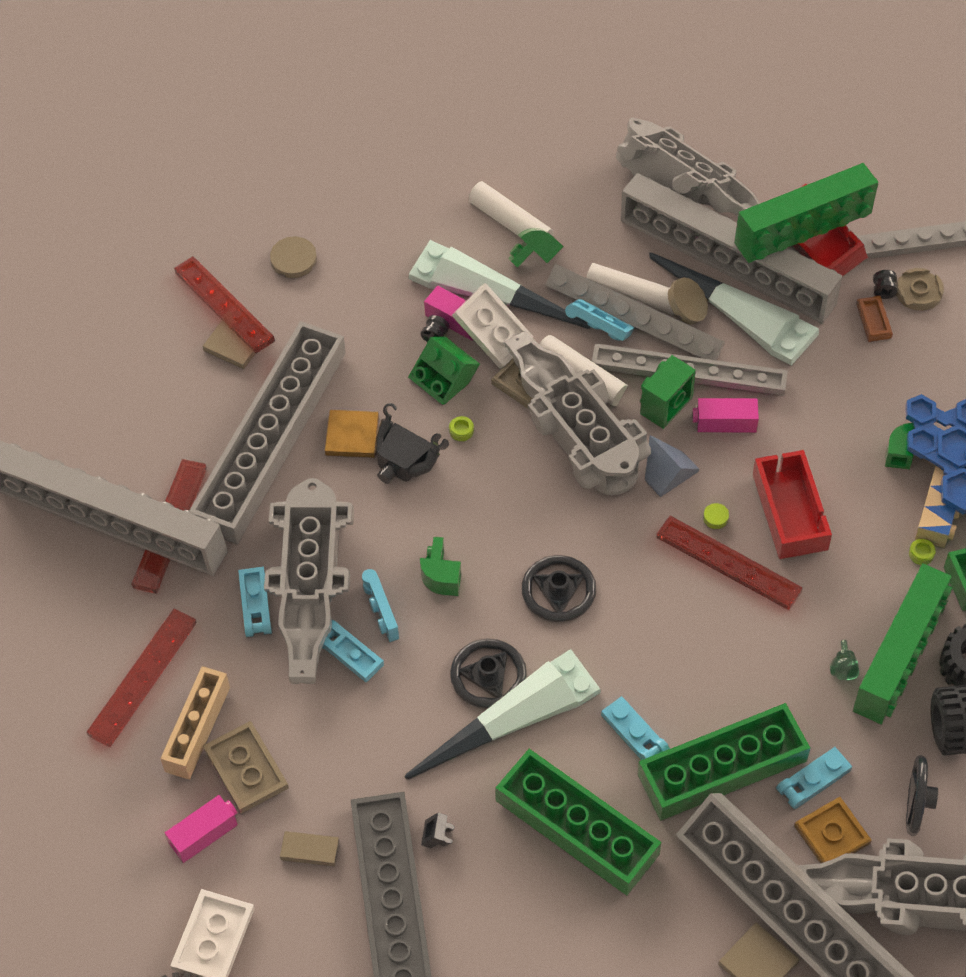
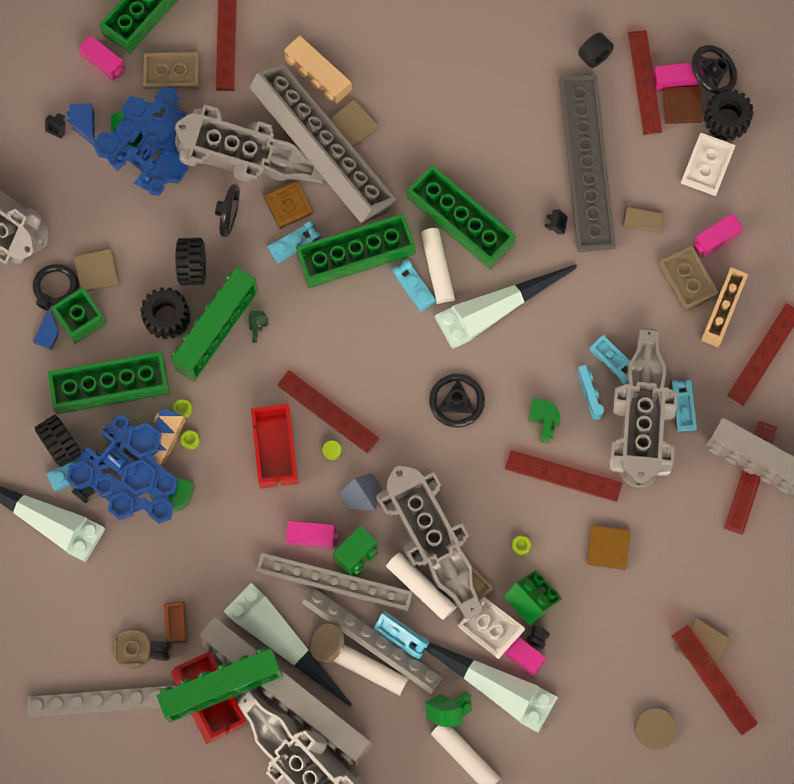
camera: 175 degrees left, 15 degrees up
(269, 429) = (674, 547): light grey brick -> none
(403, 452) = (568, 520): black torso -> none
(414, 508) = (563, 476): none -> clear red tile
(487, 672) = (514, 338): black piece -> none
(603, 758) = (437, 265): none -> white brick
(903, 515) = (190, 440): none -> lime tile

